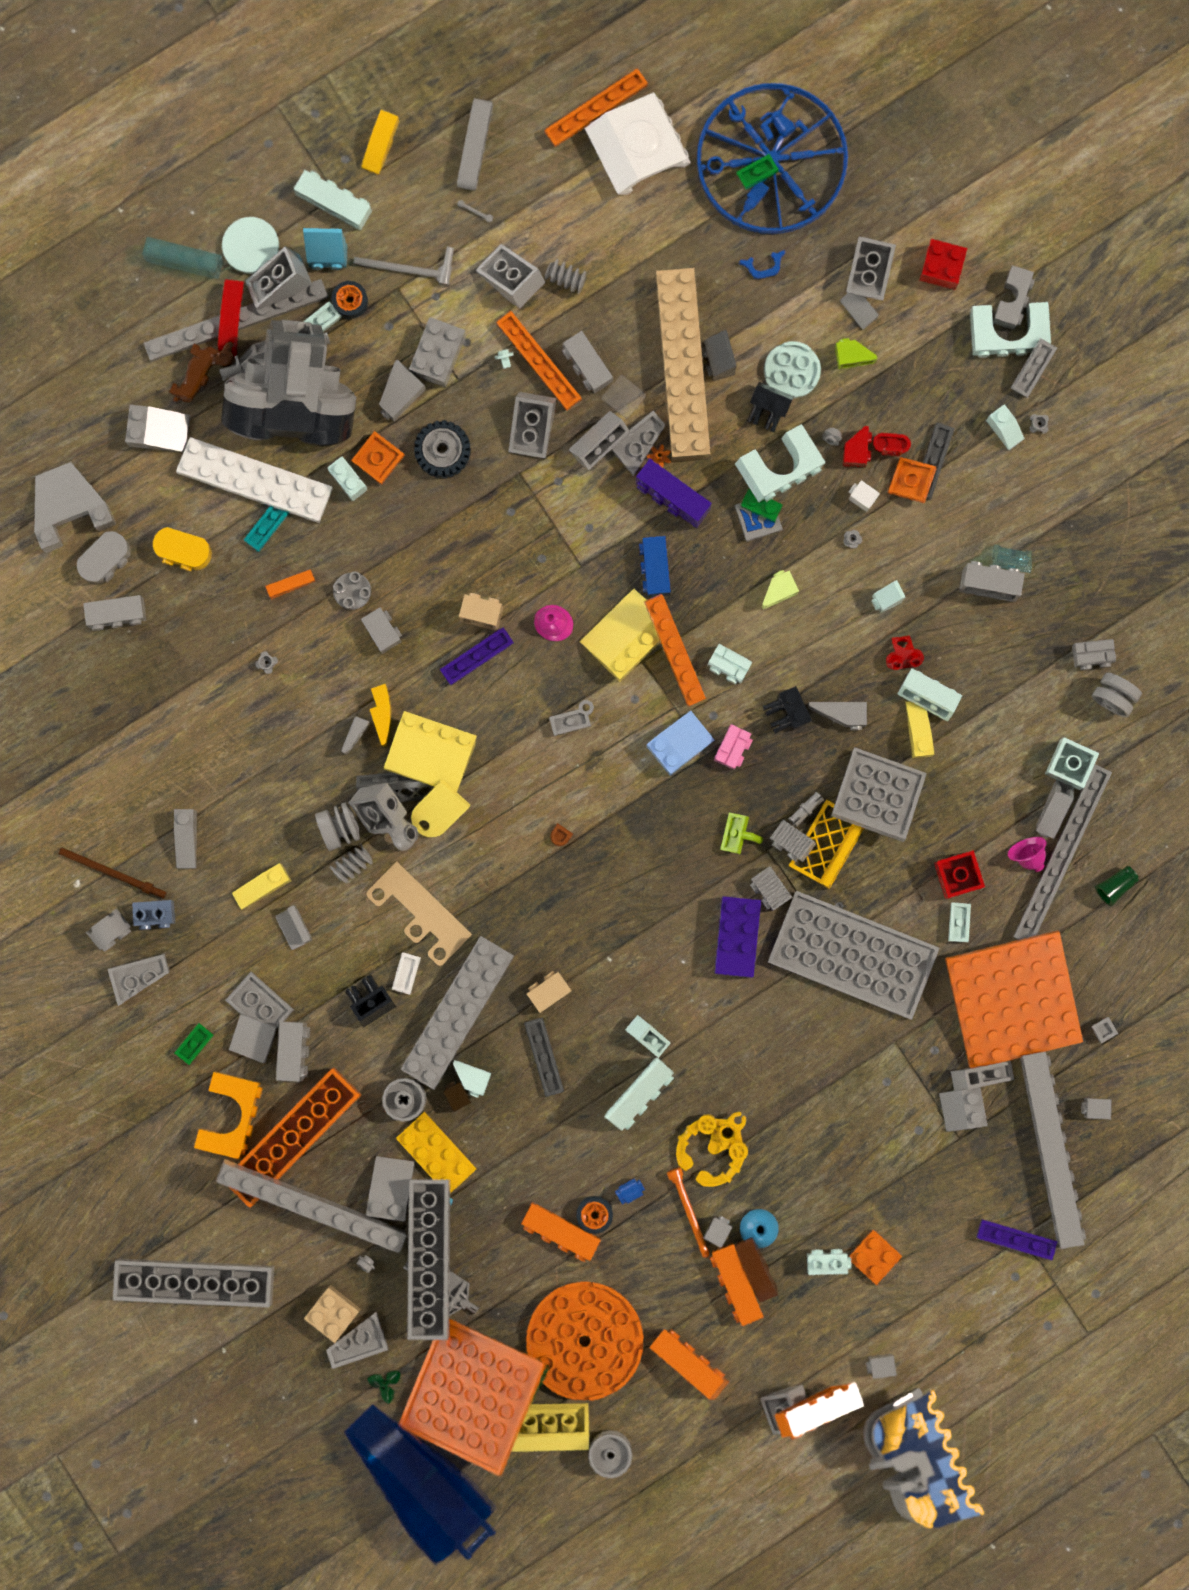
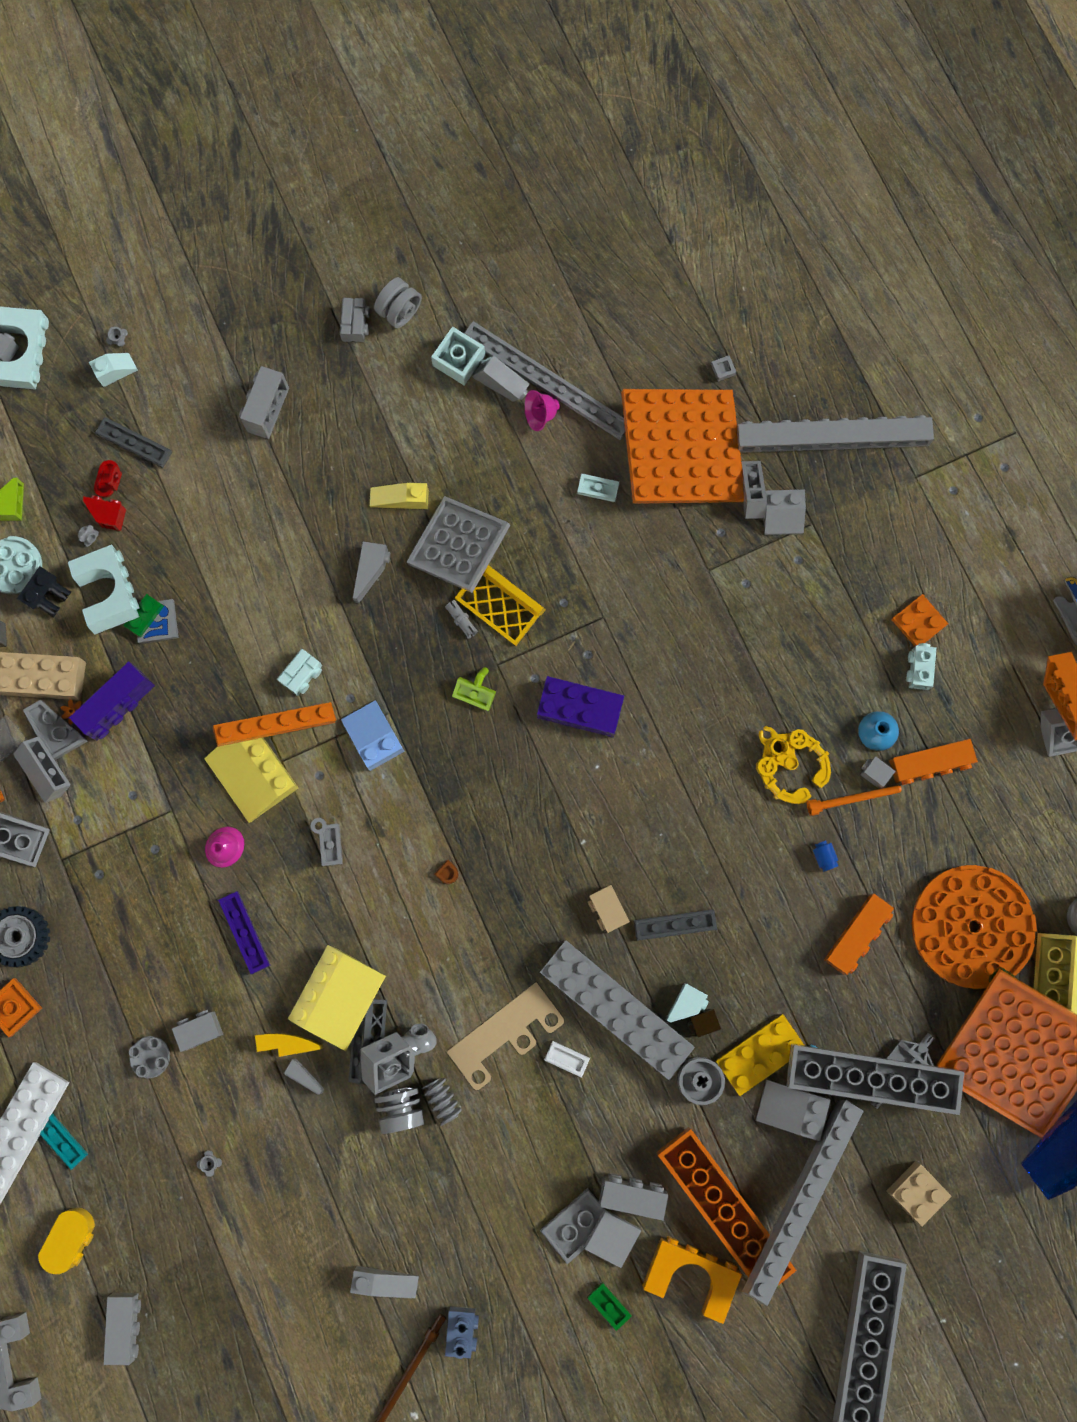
camera: 80 degrees left, 5 degrees down
(104, 558) = (59, 1332): light grey brick -> none
(108, 930) = (470, 1388): light grey brick -> none
(137, 975) = (526, 1363): light grey wing -> none
(261, 886) = (449, 1204): light yellow slope -> none
(290, 584) = (129, 1124): orange piece -> none
(293, 927) = (500, 1175): light grey panel -> none
(347, 478) = (27, 1044): light aqua brick -> none
(359, 1343) = (952, 1168): light grey wing -> none
(365, 1263) = (868, 1149): light grey plate -> none
(372, 1005) = (596, 1100): black brick -> none
(387, 1392) = (1005, 1146): dark green plant -> none
(440, 809) = (398, 996): light yellow tile -> none
(481, 612) = (197, 920): tan brick -> none
(598, 1224) = (854, 891): wheel -> none
(638, 1094) = (726, 831): light aqua slope -> none
(648, 1036) = (668, 813): light aqua slope -> none
(655, 566) = (184, 732): blue brick -> none
(689, 1364) = (1010, 821): orange wedge -> none
(733, 746) = (385, 681): bright pink brick -> none
(756, 1270) = (921, 739): reddish brown slope -> none
(770, 888) = (536, 666): light grey brick -> none
(780, 589) = (232, 609): yellowish green slope -> none
(792, 841) = (491, 637): light grey brick -> none
(793, 707) = (357, 615): black brick -> none
(847, 539) = (199, 535): light grey plate -> none
(853, 955) = (615, 595): light grey plate -> none
(863, 495) = (154, 514): white brick -> none
(881, 1366) = (1030, 630): light grey brick -> none
(888, 597) = (260, 503): light aqua slope -> none
(904, 657) = (323, 500): red bracket -> none
(912, 480) = (147, 464): orange tile -> none
(929, 694) = (366, 480): light aqua brick -> none
(959, 874) = (551, 479): red brick -> none
(1012, 558) = (244, 380): clear light blue plate -> none
(1016, 1239) = (918, 482): dark purple plate -> none
(1033, 367) = (59, 330): light grey tile -> none
(1096, 1108) = (799, 386): light grey brick -> none
(1117, 885) = (584, 334): dark green plant -> none

